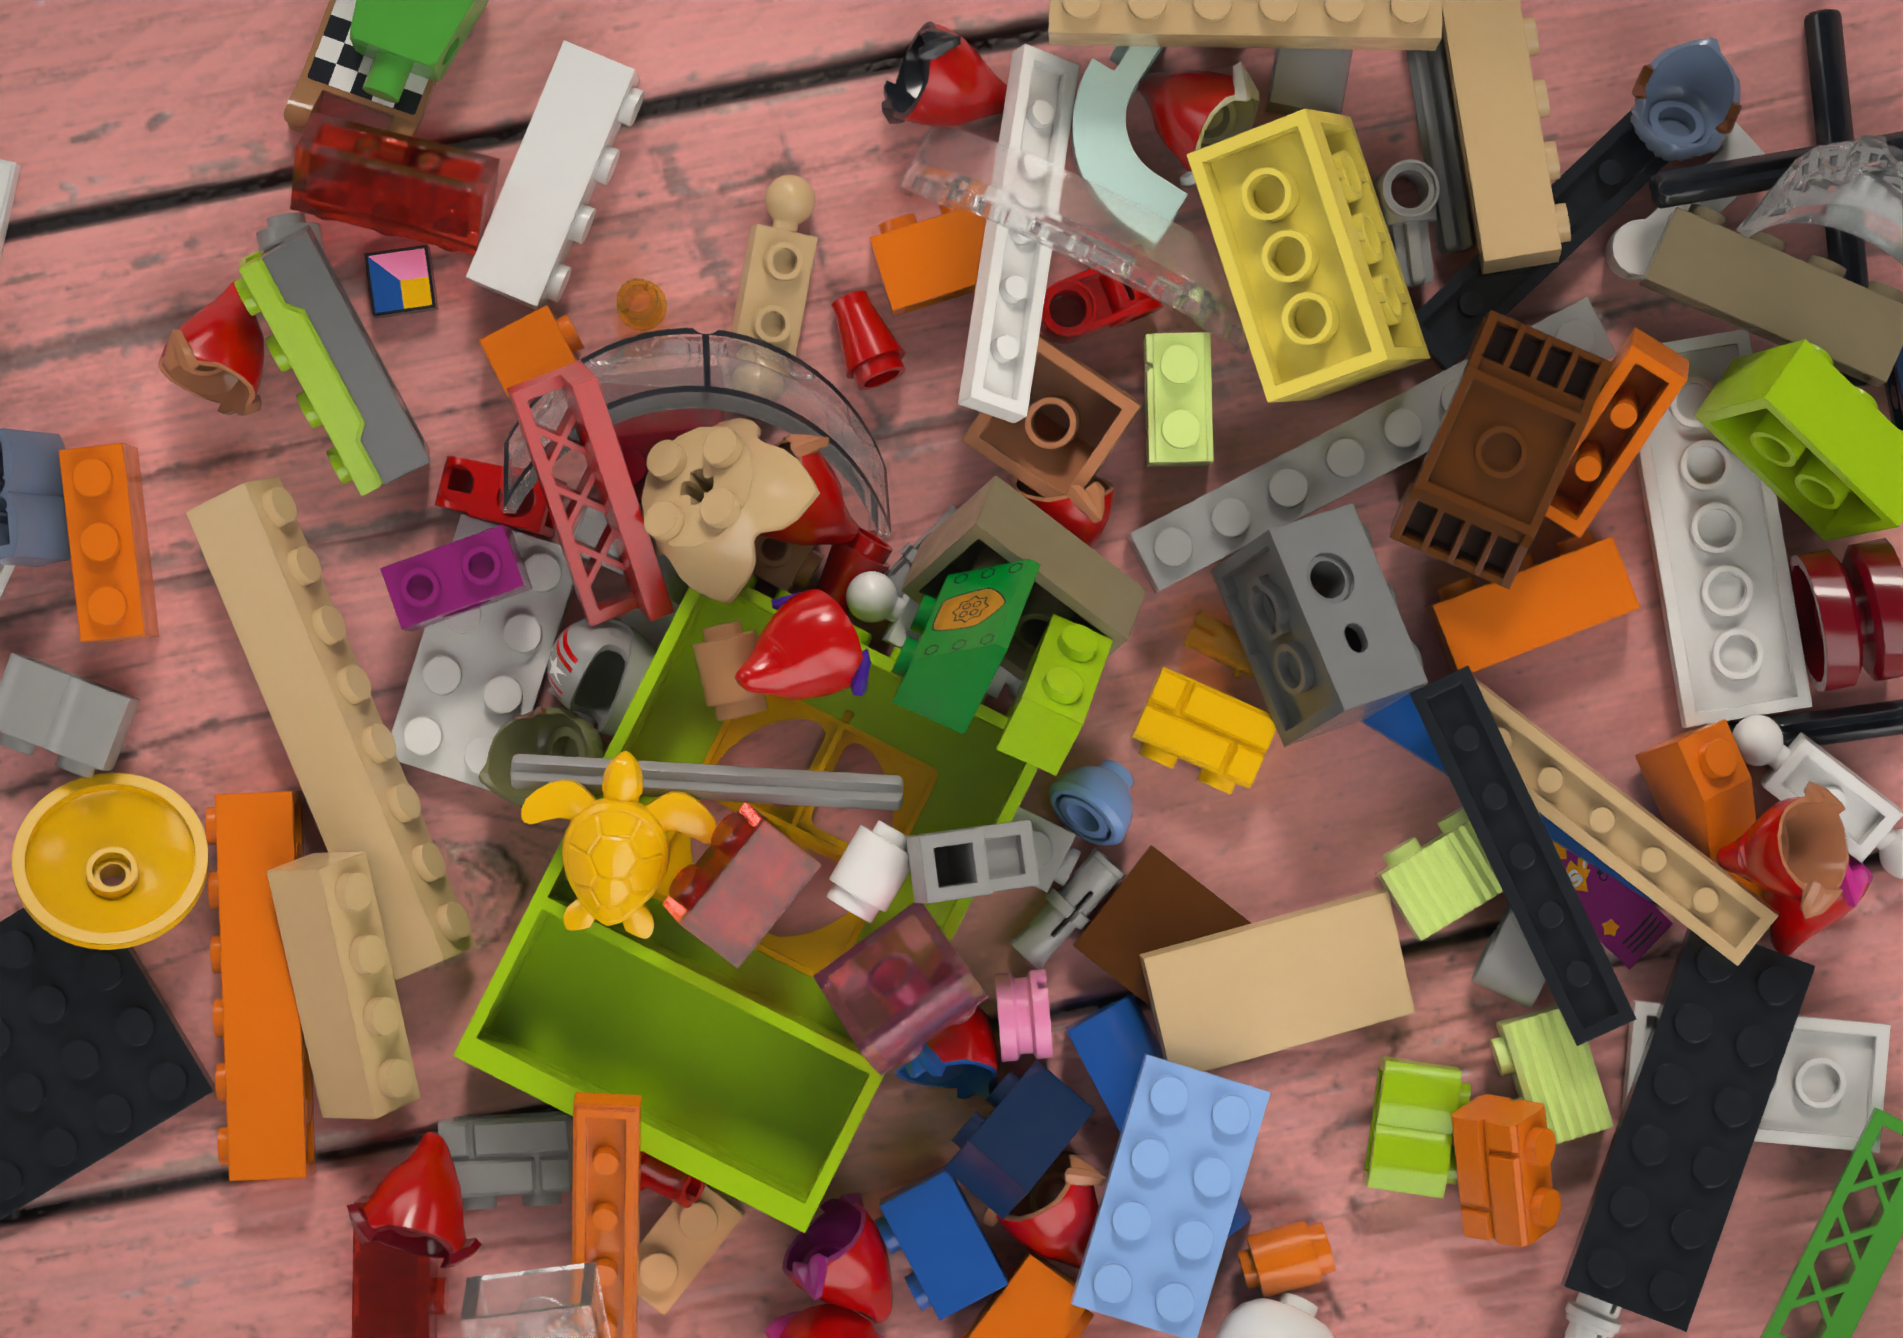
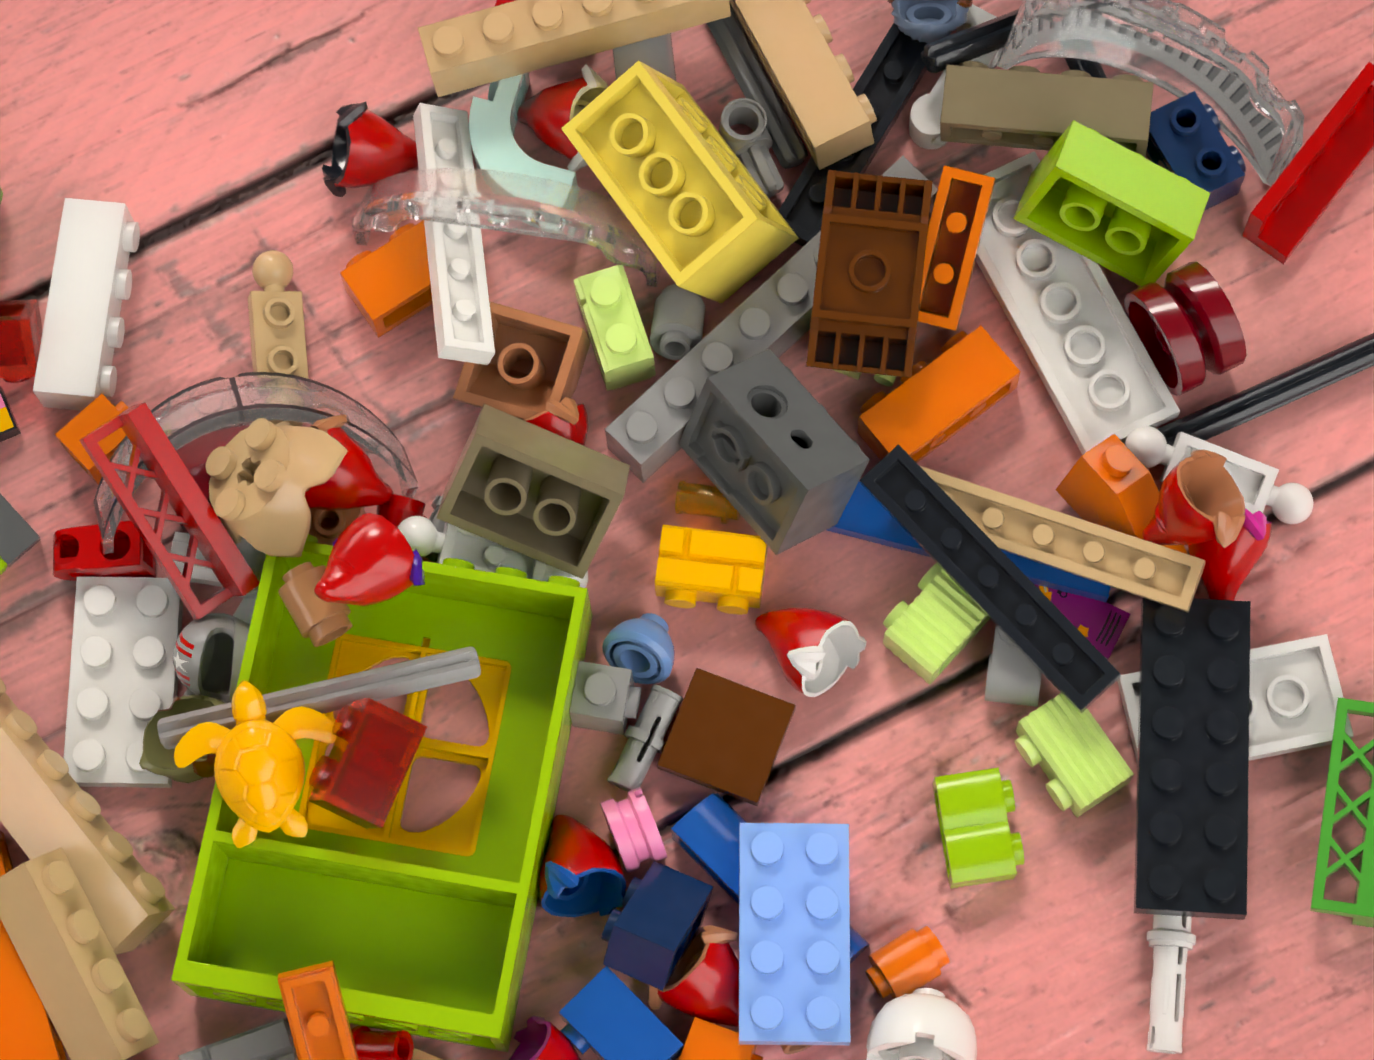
camera: 15 degrees left, 15 degrees down
(456, 578) = (82, 616): magenta brick -> none
(649, 317) = (174, 373): clear yellow pin -> none
(867, 344) = (363, 359): red cone -> none
(870, 871) = (470, 725): white brick -> none
(901, 988) = (522, 808): clear pink brick -> none
(961, 641) = (492, 530): green slope -> none
(972, 861) = (542, 691): light grey brick -> none
(1055, 694) = (577, 549): lime brick -> none
(1102, 303) = (537, 267): red piece -> none
(1249, 424) = (677, 322): none -> light grey brick
(1278, 982) = (831, 743): tan tile -> none
(1290, 857) = (811, 646): none -> hat
(1505, 1170) = (1058, 833): orange brick -> none

